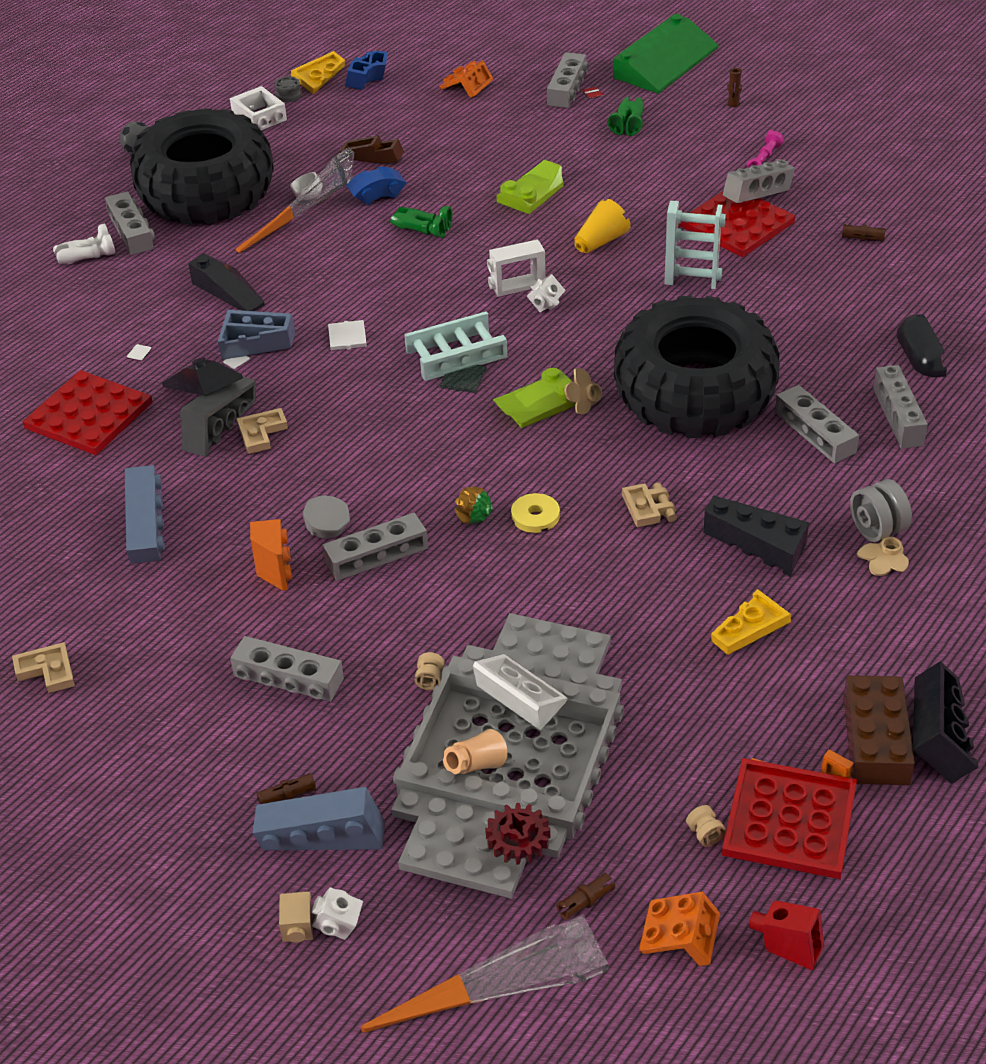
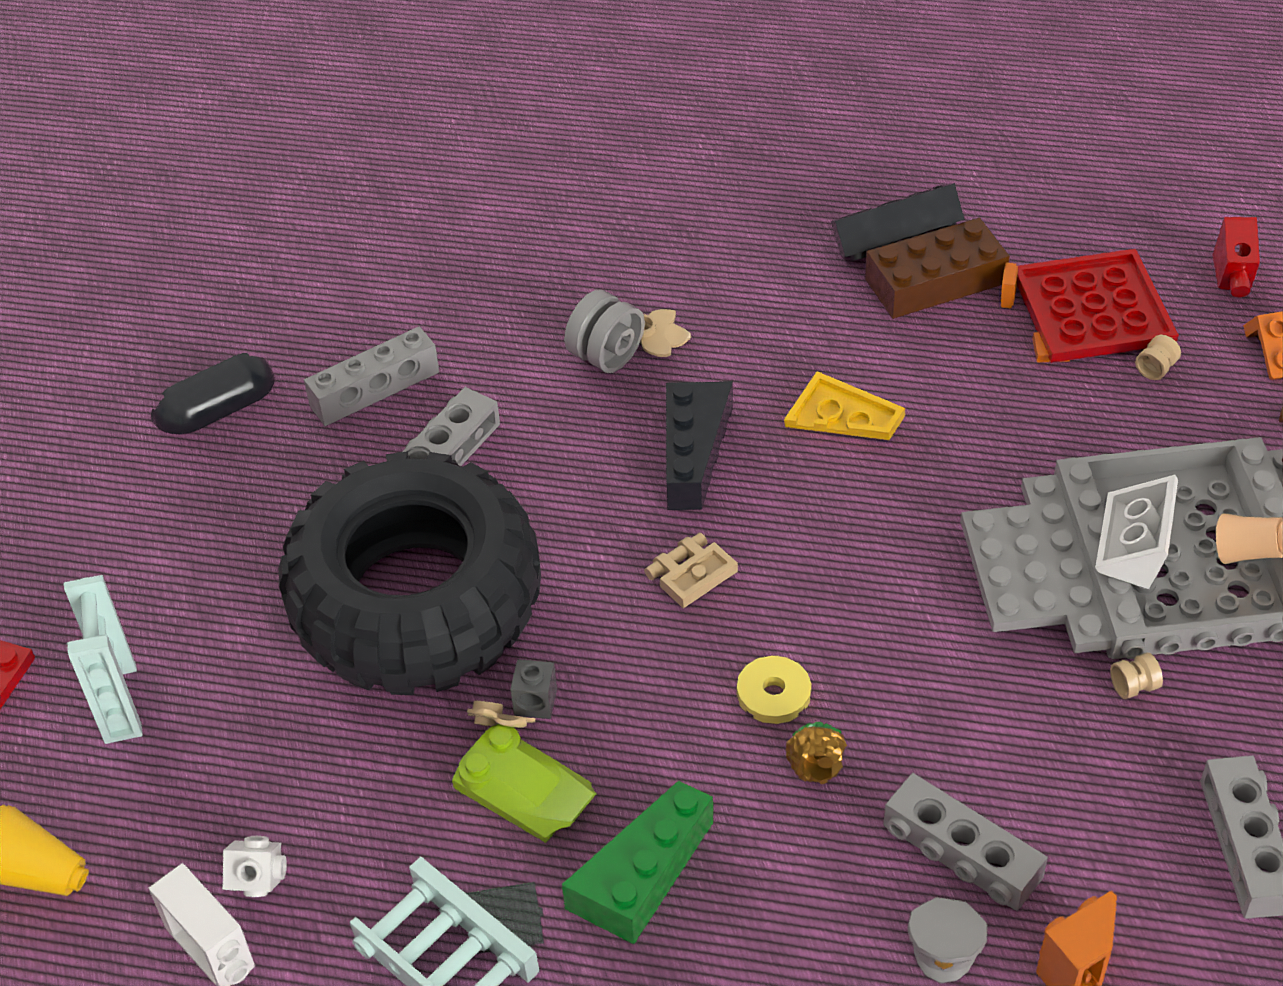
camera: 115 degrees left, 5 degrees up
(451, 421) = (639, 866): none -> green wedge
(594, 411) = (533, 689): none -> dark grey brick

